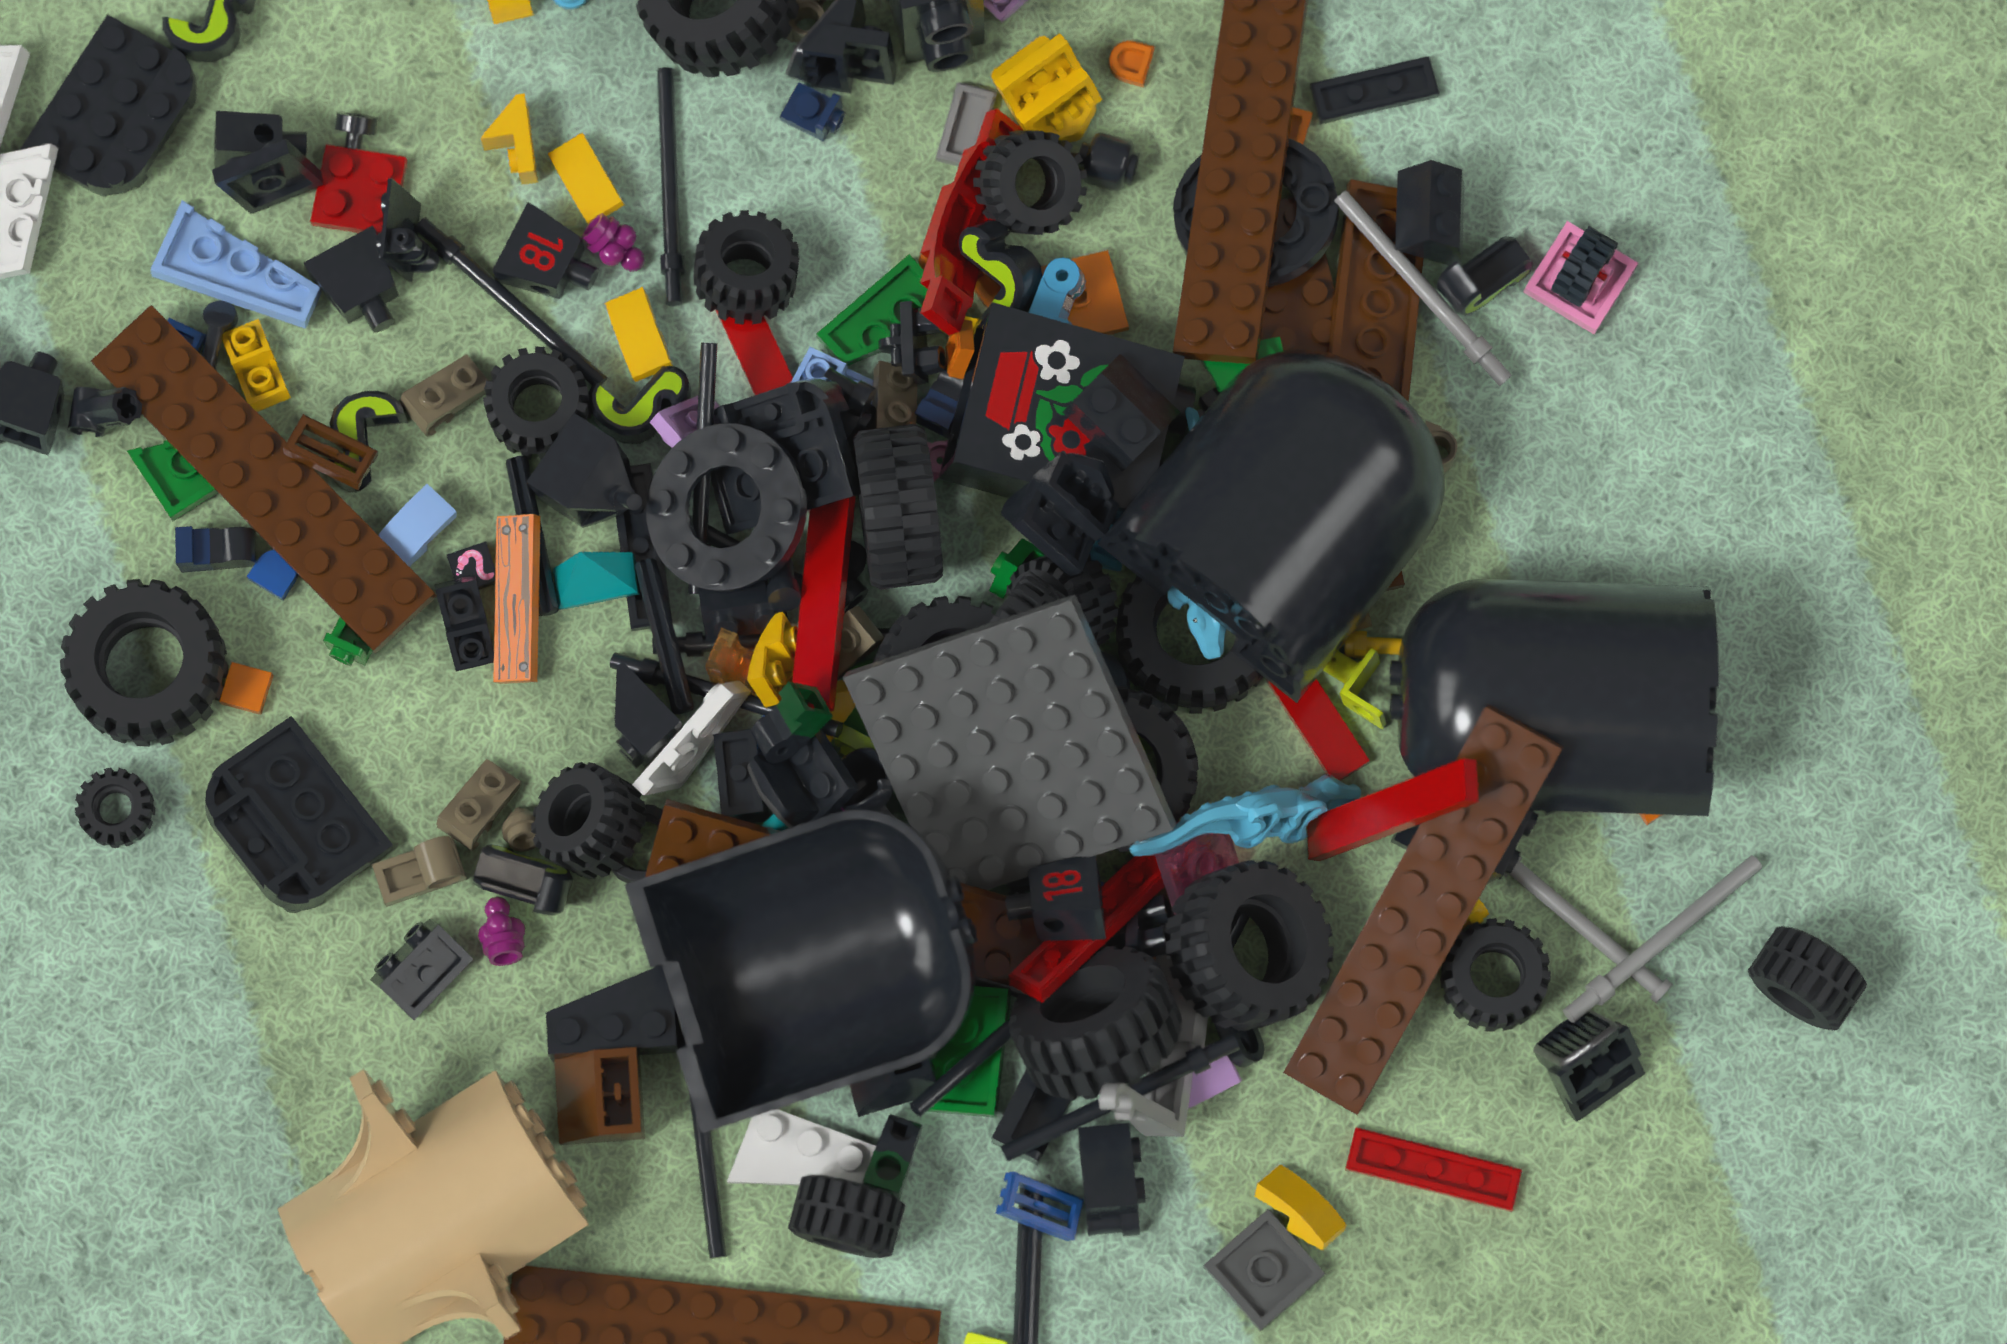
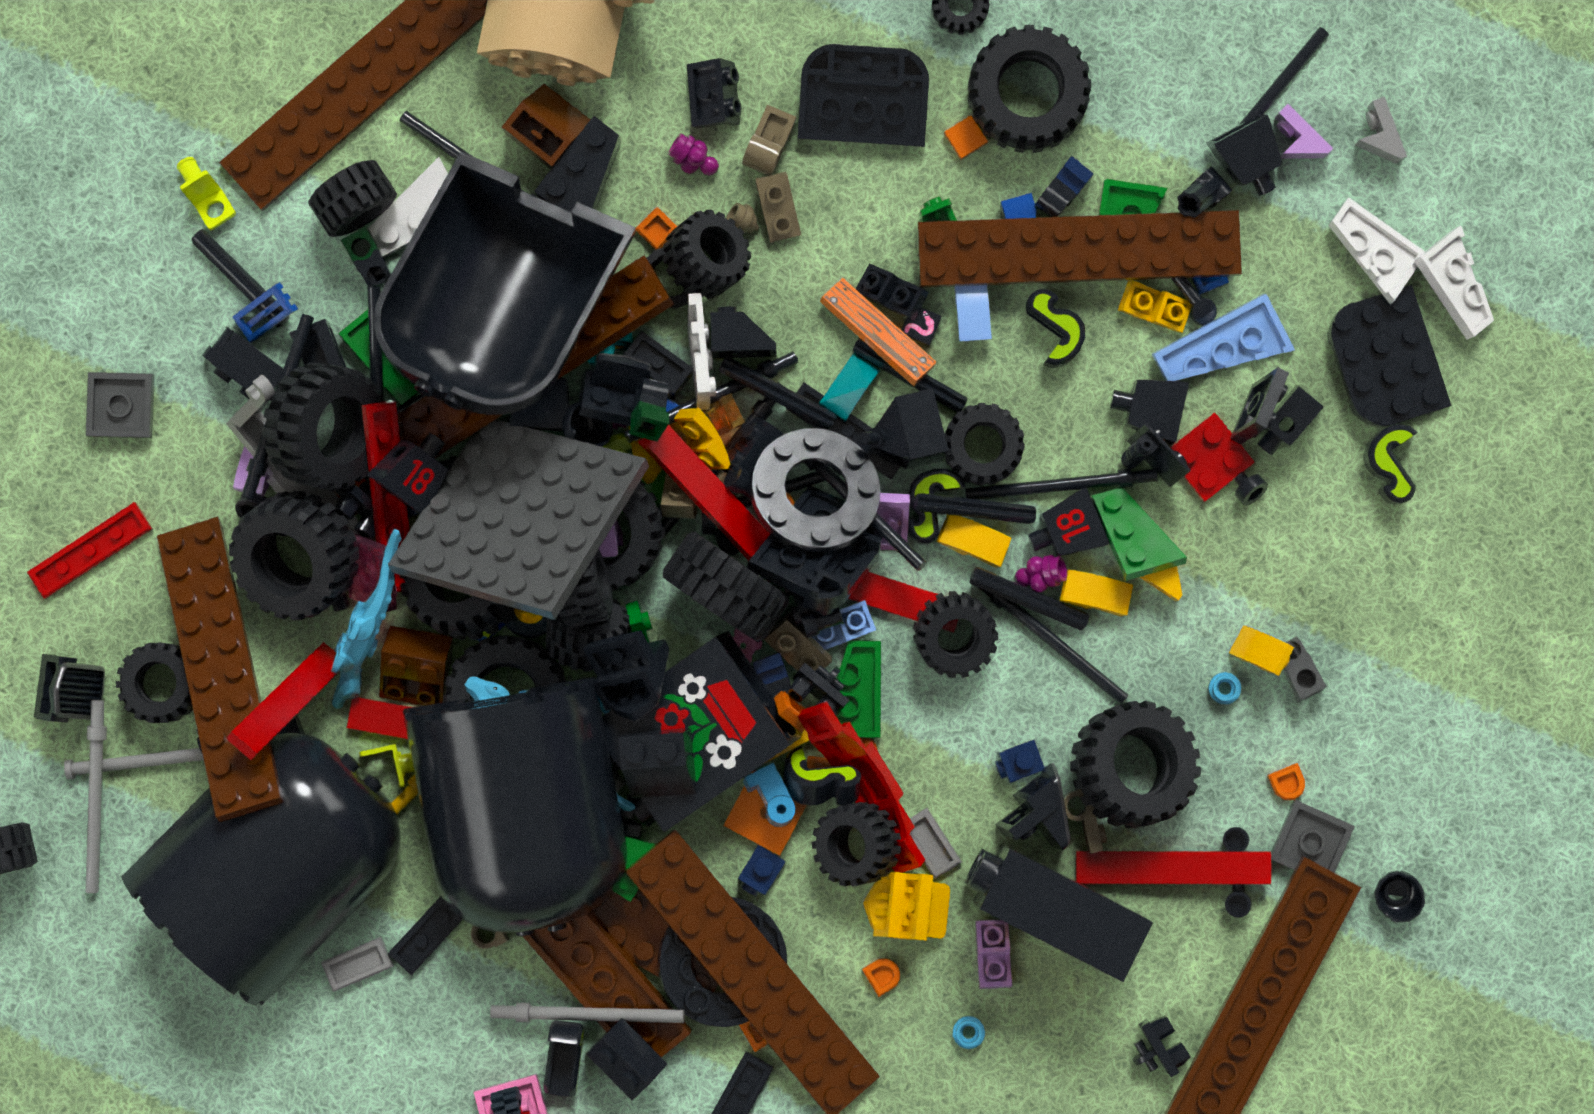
camera: 135 degrees right, 10 degrees up
(320, 464) = (1031, 307): reddish brown tile -> none
(444, 394) = (1038, 398): dark tan plate -> none
(499, 185) = (1134, 537): none -> green wing
(524, 879) = (710, 192): black animal -> none
(606, 904) = (656, 228): none -> orange tile
(607, 355) = (974, 508): none -> black axle
(648, 234) = (1029, 598): none -> black axle
(1109, 161) = (831, 904): black head -> none
(1139, 255) = (760, 871): none -> dark blue bracket
(1248, 745) = (415, 666): none -> reddish brown slope
(1309, 1212) = (139, 457): yellow slope -> none
(1492, 509) = (425, 936): none -> black tile
(1582, 548) = (357, 964): none -> light grey tile

